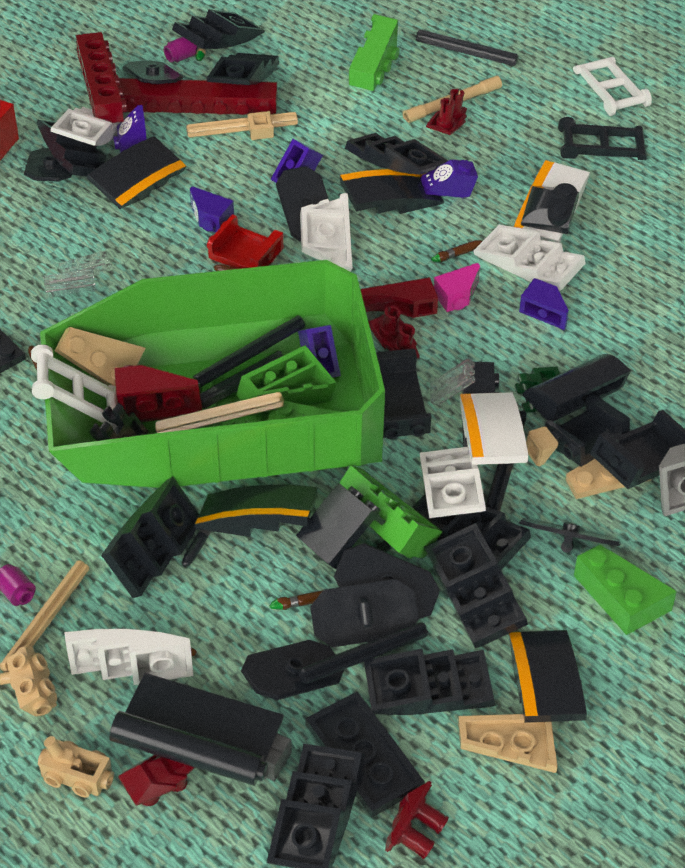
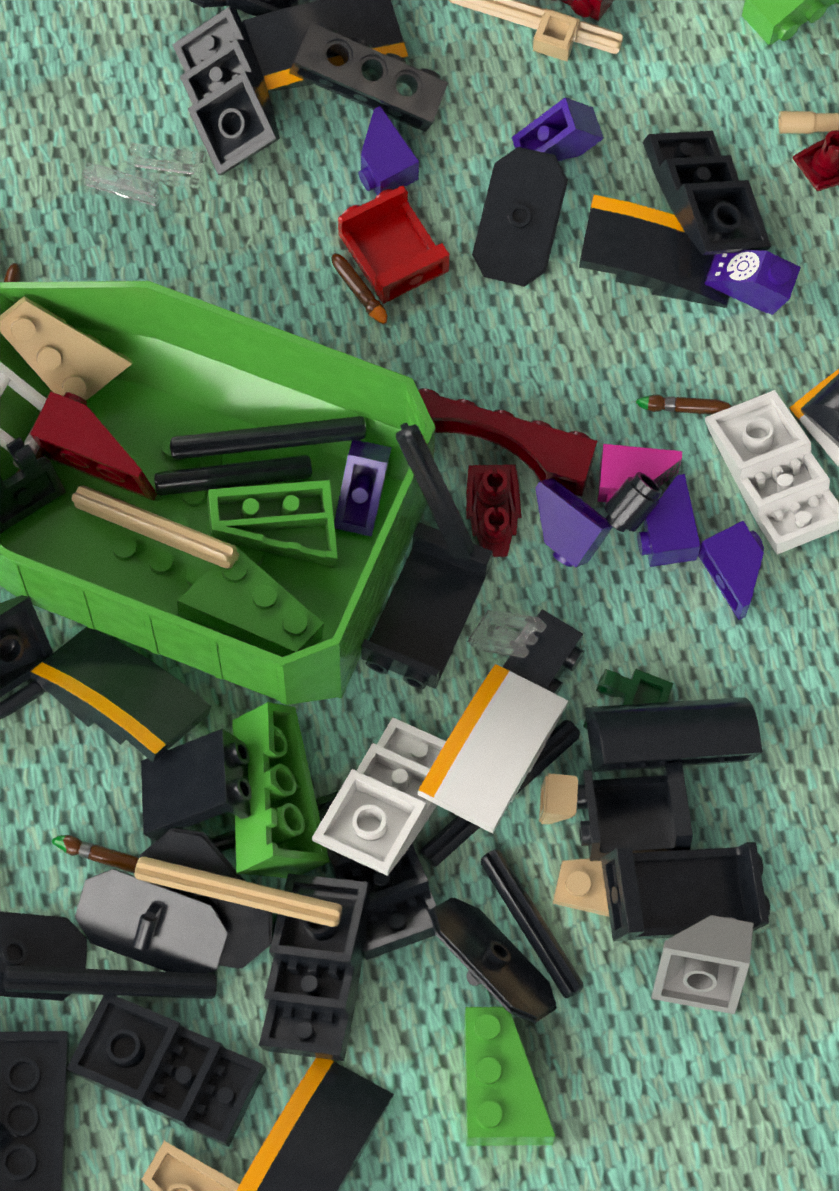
camera: 30 degrees right, 20 degrees up
(99, 214) = (226, 91): none -> black slope
(174, 174) = (348, 81): none -> black brick
(327, 231) = (517, 281): white wing -> none
(376, 309) = (435, 491): none -> black axle
(406, 561) = (238, 891): none -> tan axle
(445, 321) = (569, 524): none -> dark purple slope
(472, 292) = (632, 502): none -> black brick
(499, 301) = (670, 529): none -> dark purple slope
(573, 511) = (532, 923): none -> black axle

